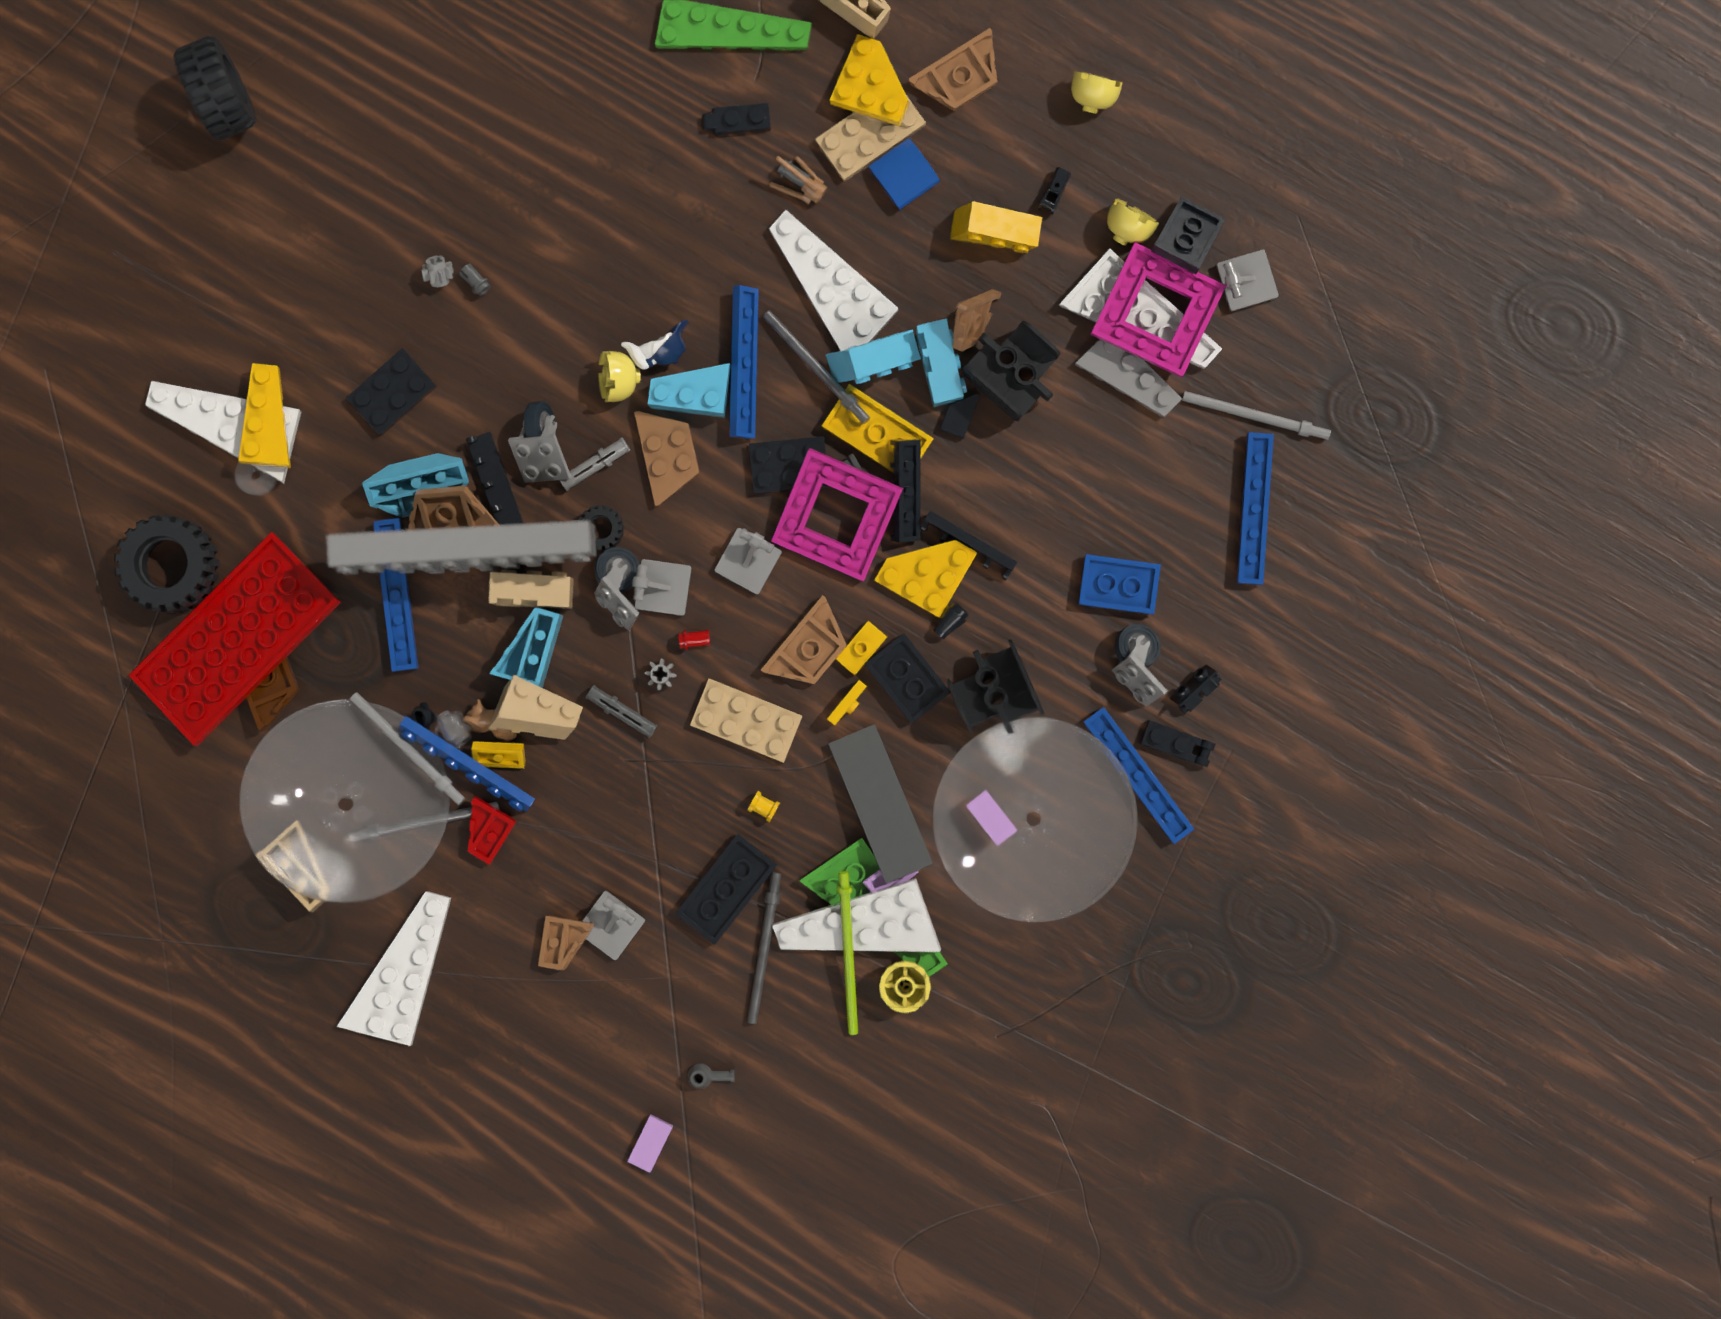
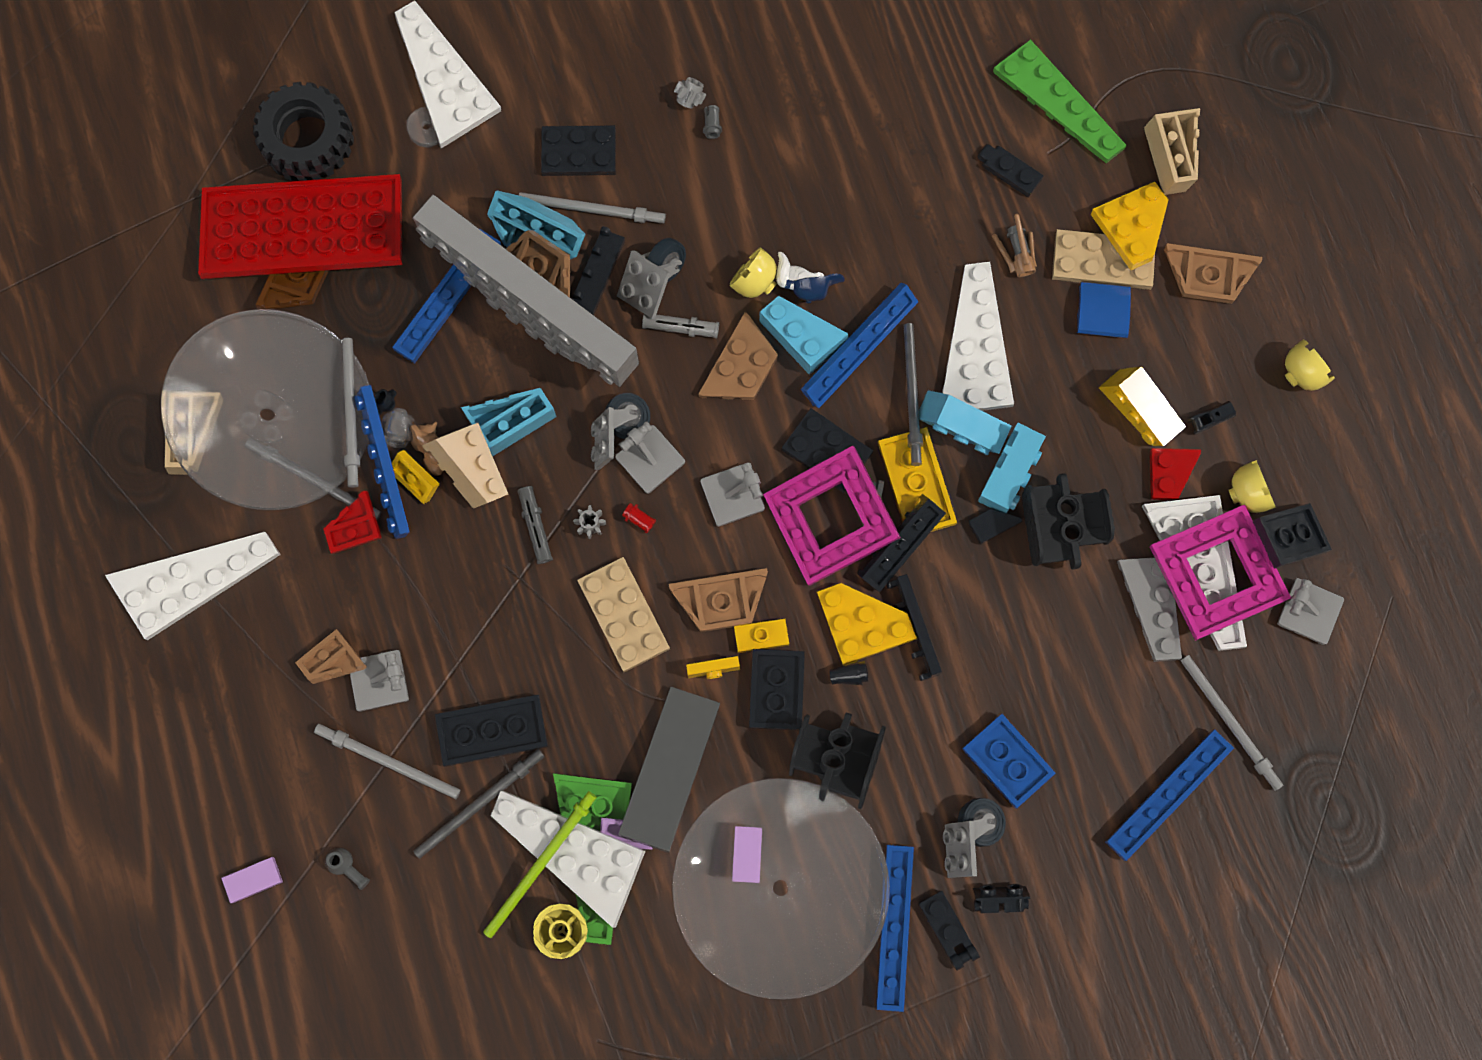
camera: 40 degrees right, 10 degrees down
(264, 428) = (461, 97): yellow wing -> none
(485, 403) = (638, 214): none -> light grey bar
(531, 589) = (546, 372): tan wedge -> none
(616, 525) = (657, 382): black tyre -> none
(622, 990) = (342, 740): none -> light grey bar
(763, 806) = (577, 691): yellow bush -> none
(972, 319) = (1065, 455): medium nougat wing -> none
(1058, 260) = (1170, 471): none -> red wing

